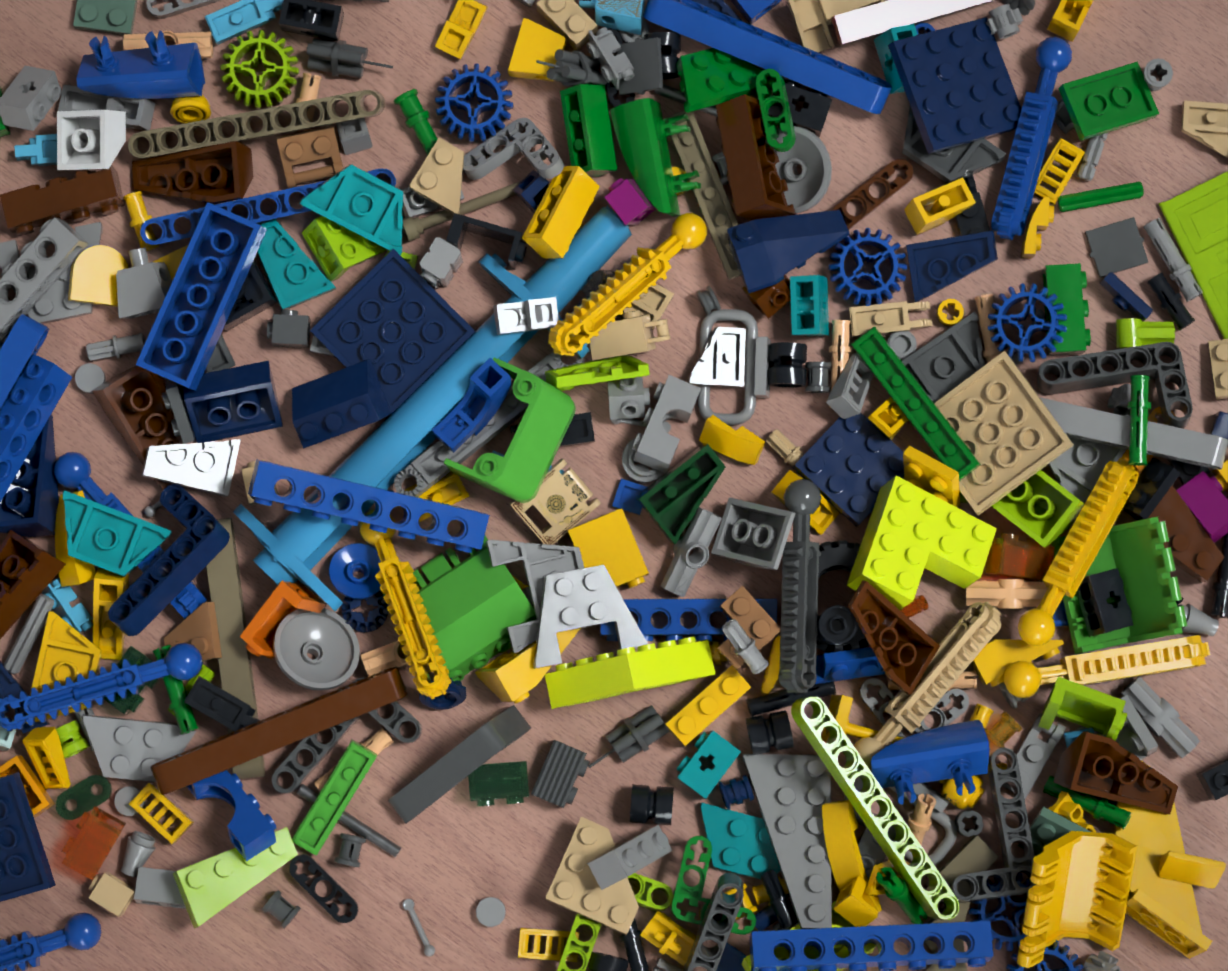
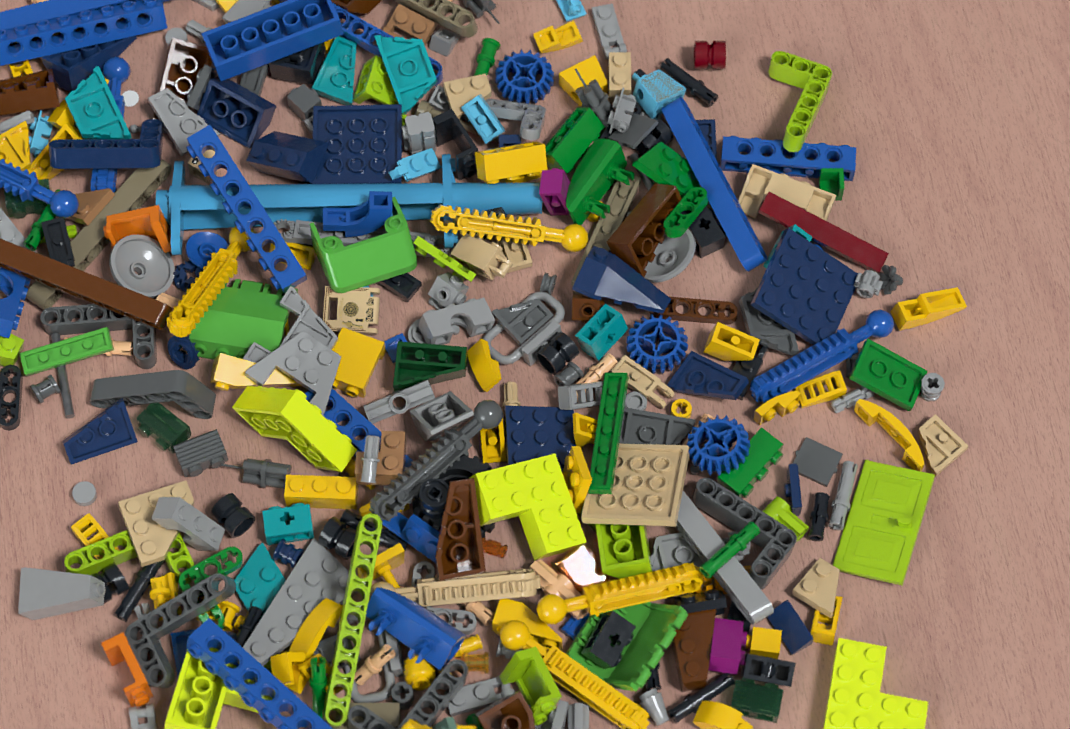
camera: 45 degrees right, 20 degrees down
(110, 482) = (131, 98): none -> white sticker
(408, 905) = (45, 449): light grey hinge -> none
(451, 845) = (101, 435): none -> dark blue wing
(469, 298) = (416, 165): none -> medium azure hinge
(484, 188) = (483, 119): none -> medium azure slope
(526, 315) = (434, 192): slope -> none
(1100, 196) = (833, 425): green axle -> none
(1199, 160) = (895, 428): none -> yellow slope

